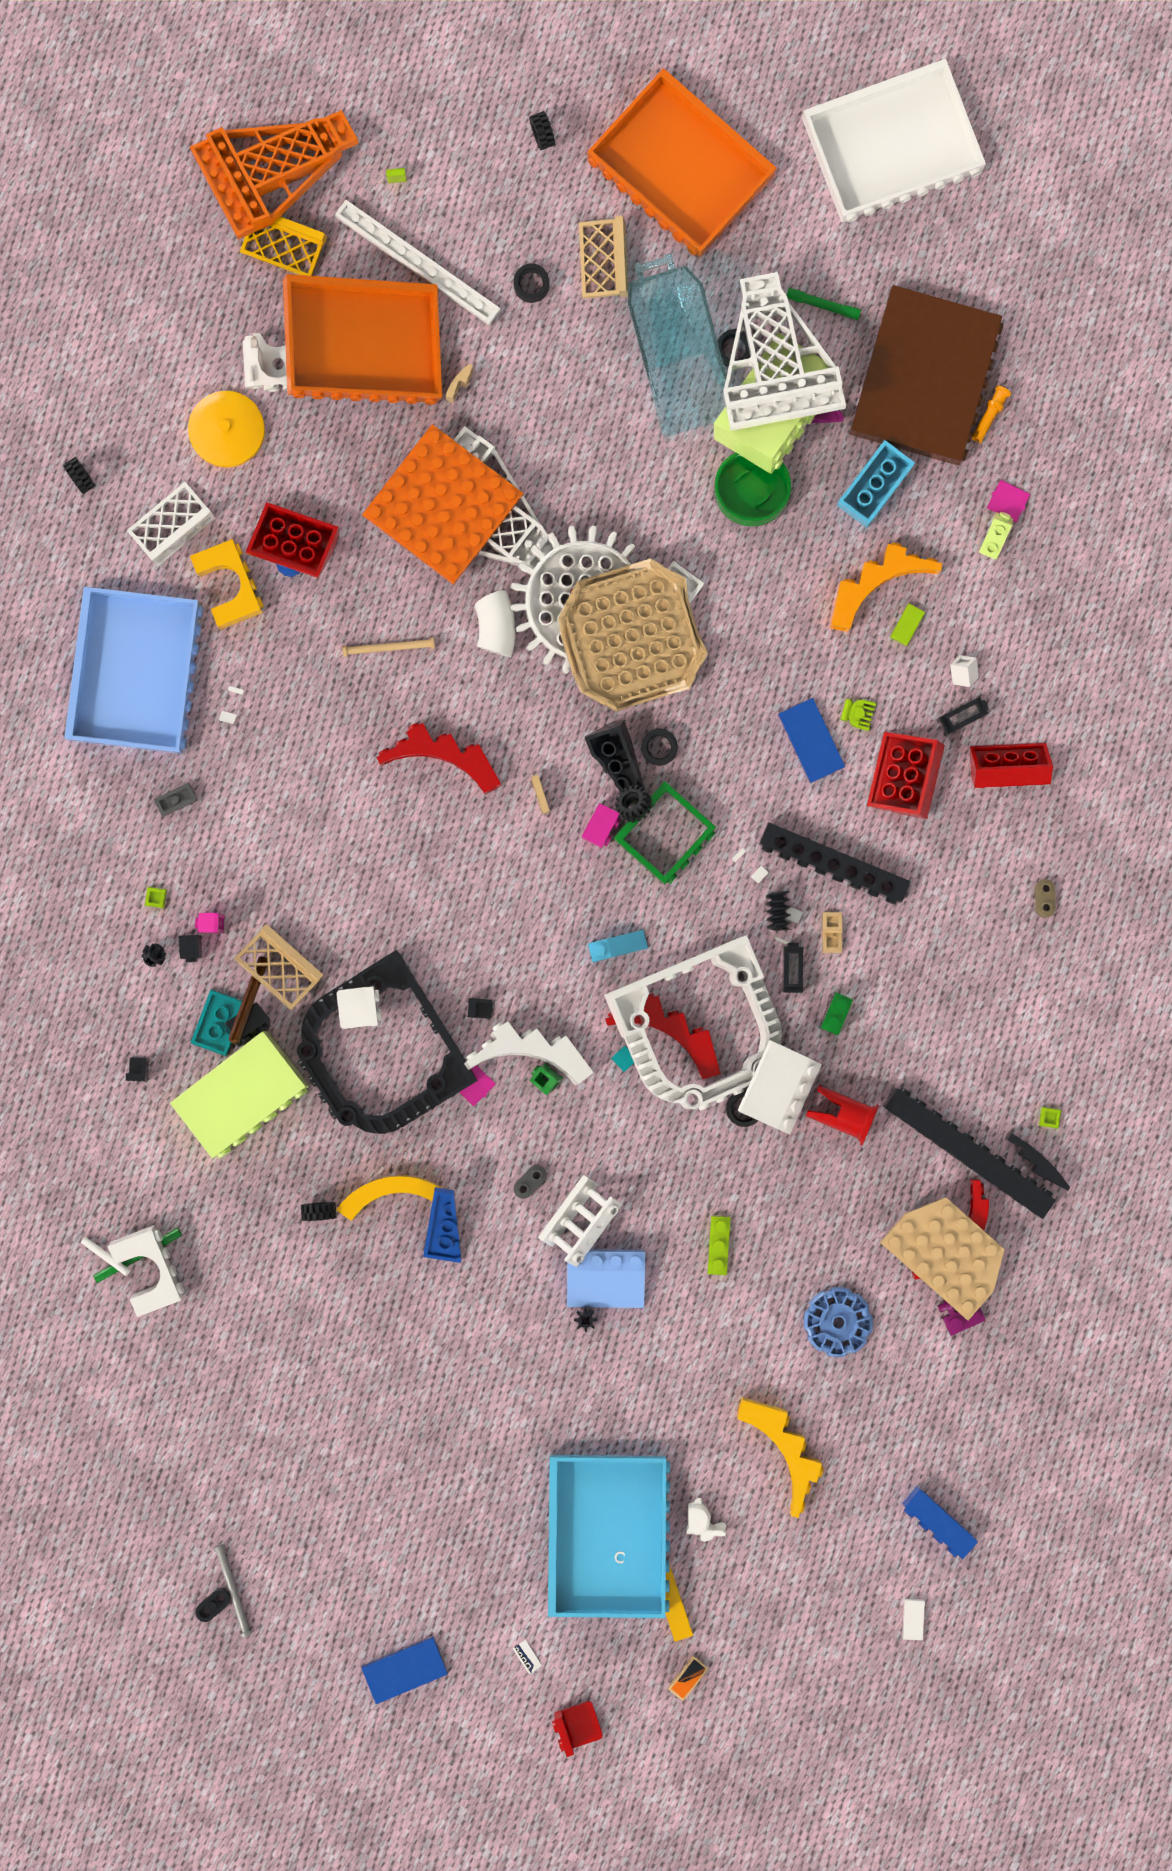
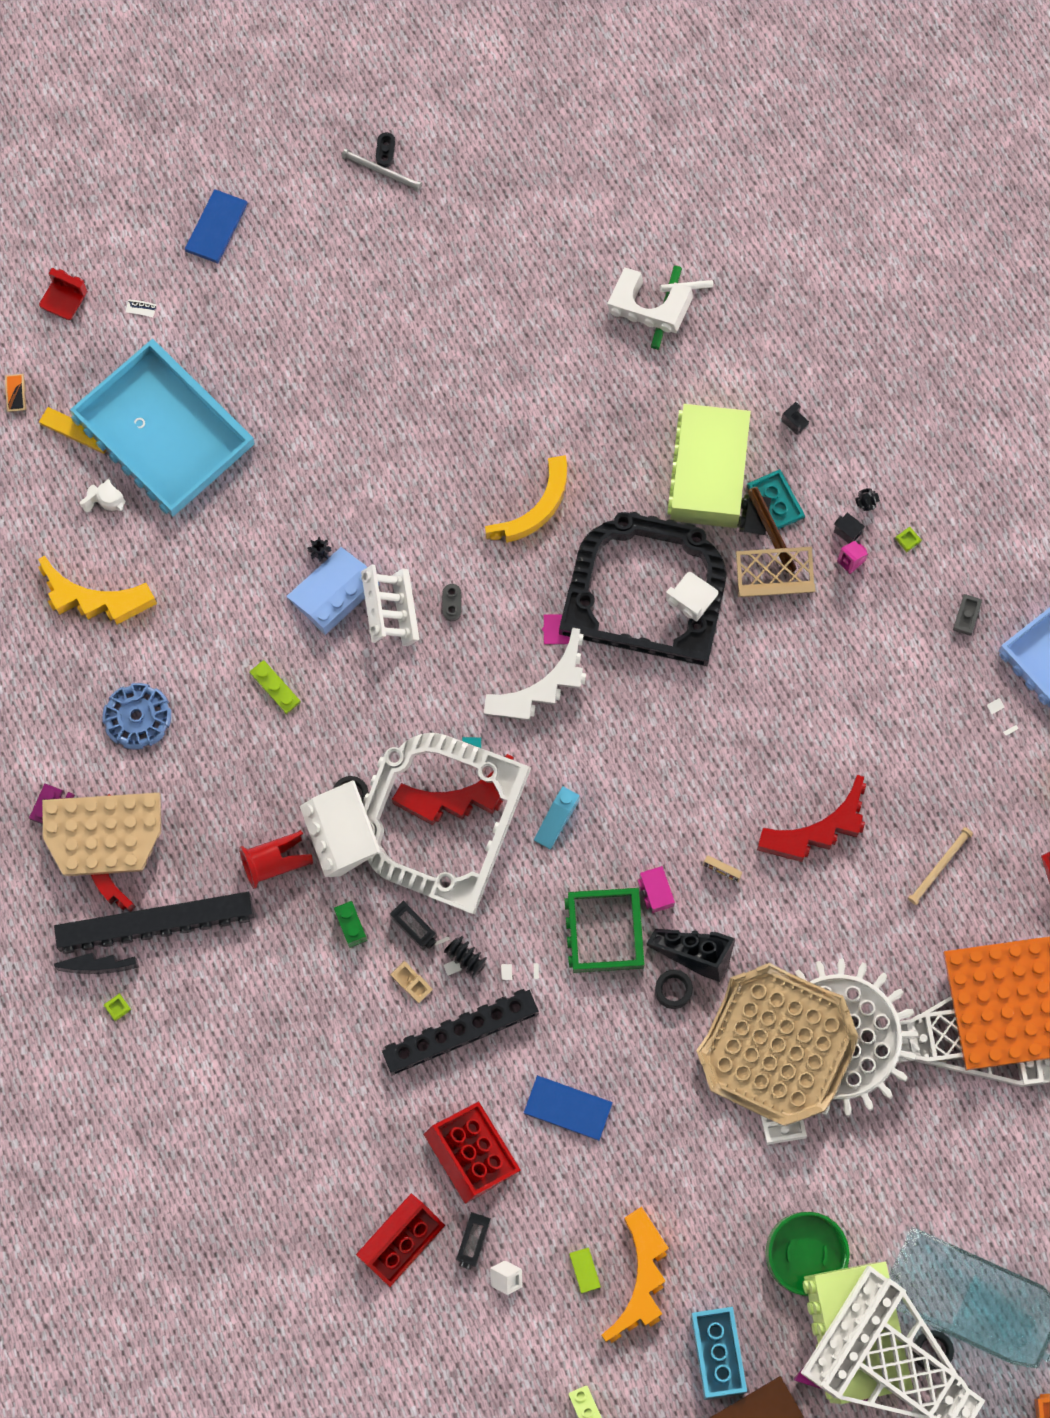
camera: 140 degrees right, 15 degrees down
(318, 1211) = (576, 443): black tyre -> none
(442, 1232) = (480, 512): blue wing -> none
(479, 1008) = (609, 681): black panel -> none
(496, 624) = (882, 954): white brick -> none
(541, 1083) = (512, 678): green brick -> none
(639, 810) = (641, 927): black tyre -> none
(855, 713) = (556, 1162): lime piece -> none
(1043, 898) = (275, 1165): dark tan plate -> none

